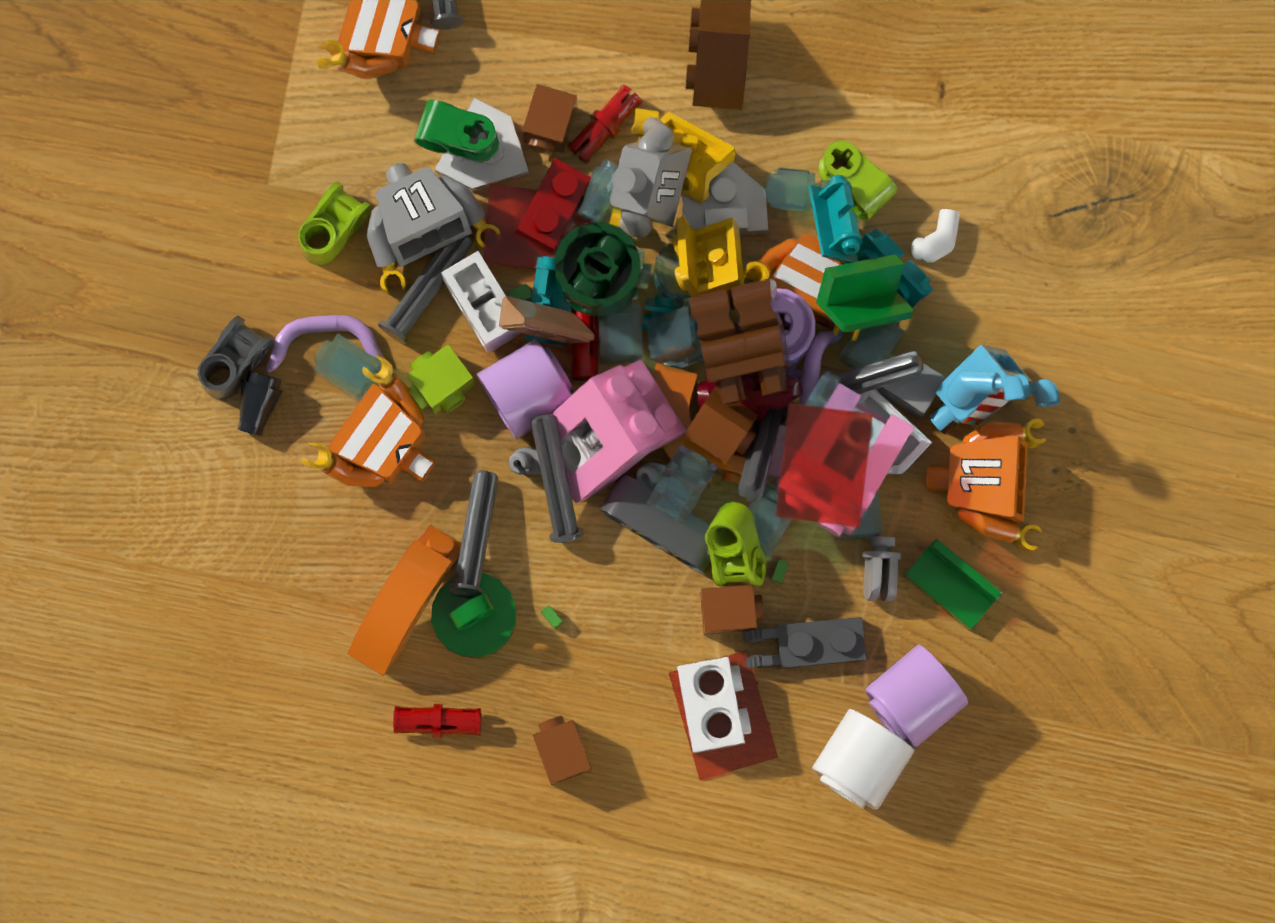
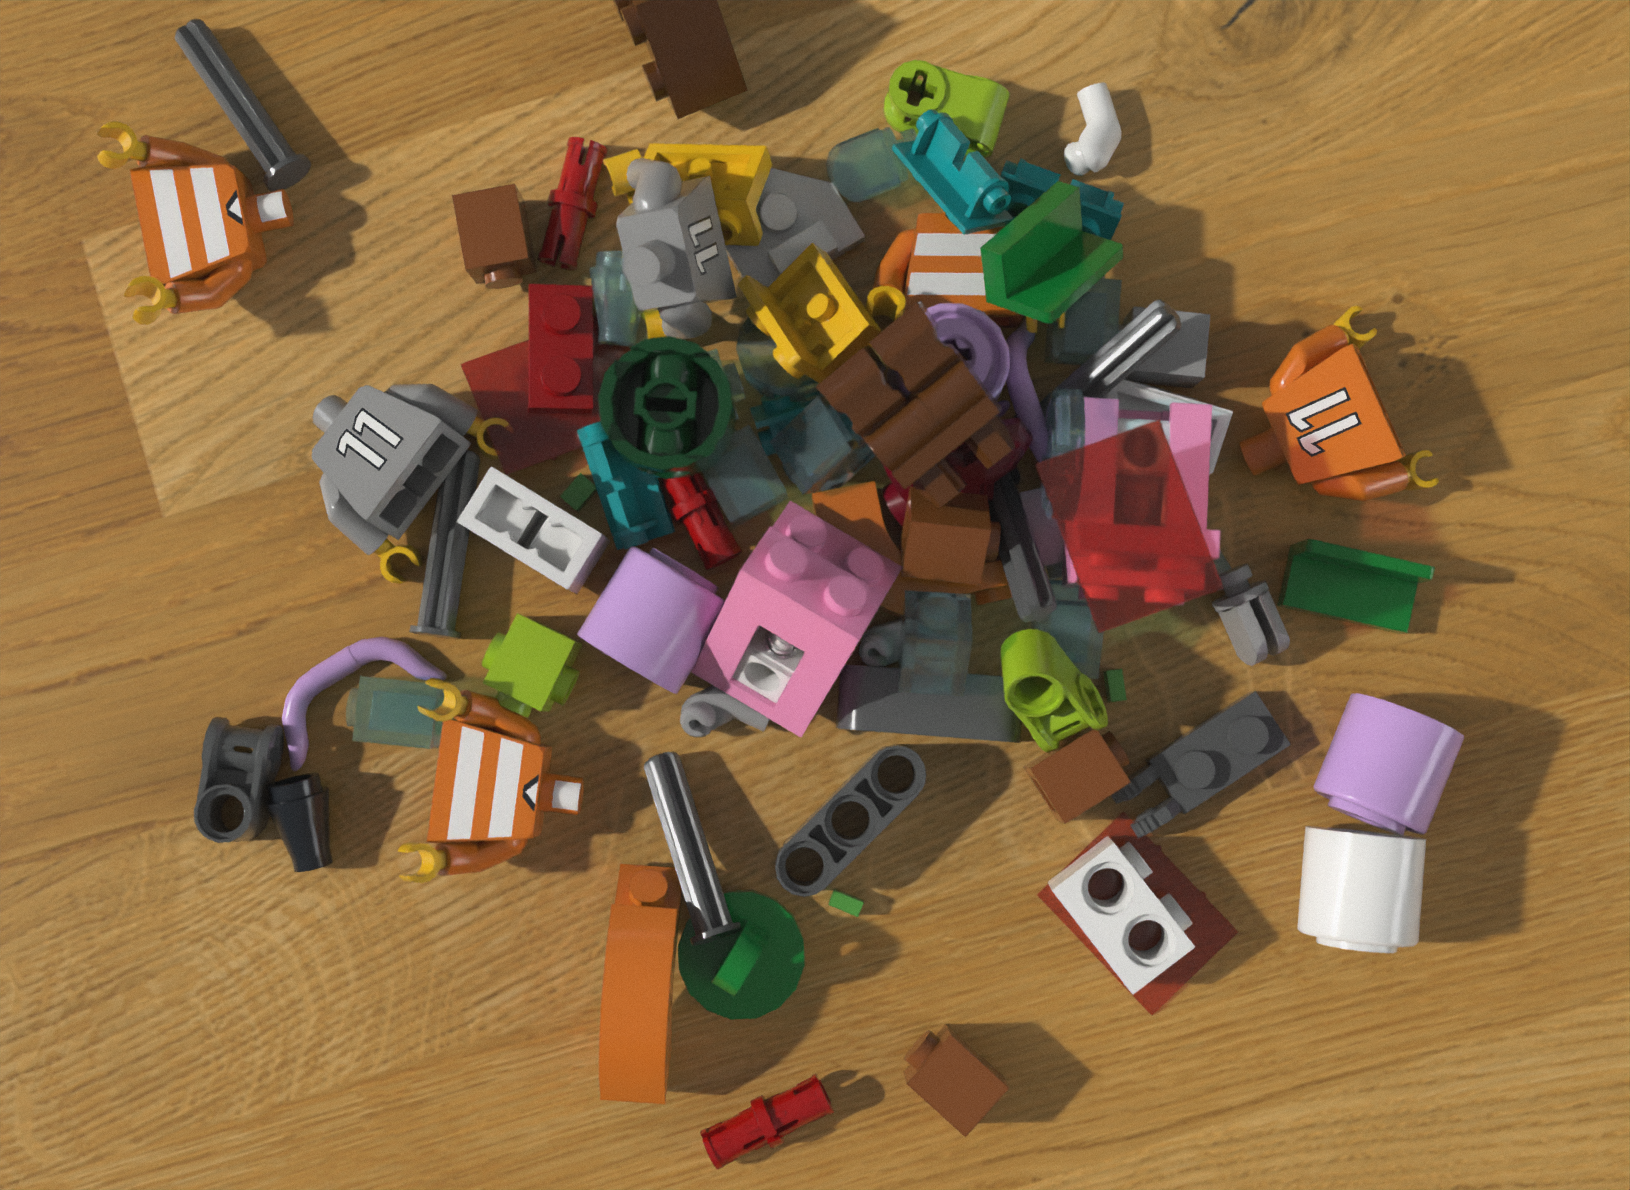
camera: 25 degrees left, 5 degrees up
(338, 218) = (276, 523): lime piece -> none
(449, 130) = (366, 317): green piece -> none
(505, 165) = (426, 321): white plate -> none
(543, 322) = (629, 517): medium nougat slope -> none
(555, 479) = (758, 722): dark grey axle -> none
(596, 551) = (841, 850): none -> dark grey beam
(983, 386) = (1264, 301): medium azure torso -> none

